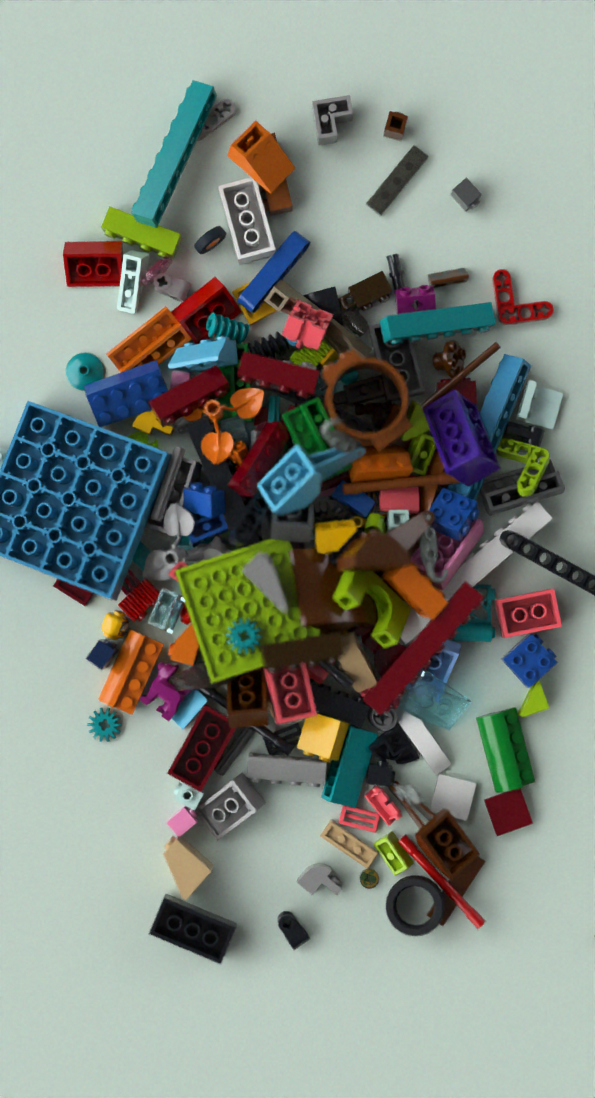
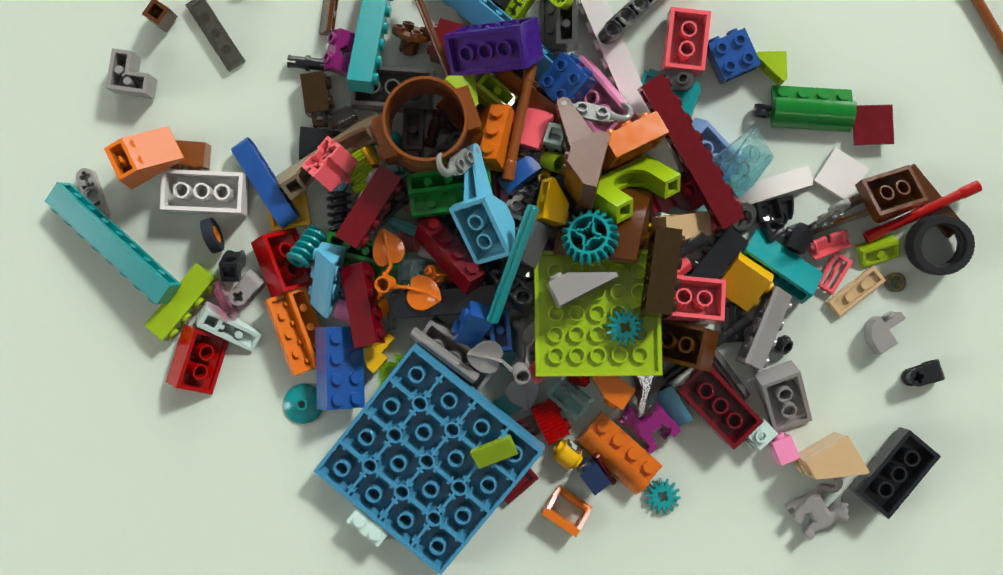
camera: 70 degrees left, 0 degrees up
(53, 640) = (559, 519): none -> orange tile
(96, 555) = (494, 451): none -> lime slope
(120, 652) = (597, 457): none -> dark red hinge
(139, 864) = (814, 506): none -> light grey animal
(188, 267) = (232, 265): none -> black leg
(266, 516) = (512, 263): none -> teal axle
(277, 792) = (783, 345): none -> black plate
(297, 579) = (591, 222): none -> teal gear
(487, 704) = (761, 111): none -> black bush
(489, 612) = (675, 76): none -> dark grey plate

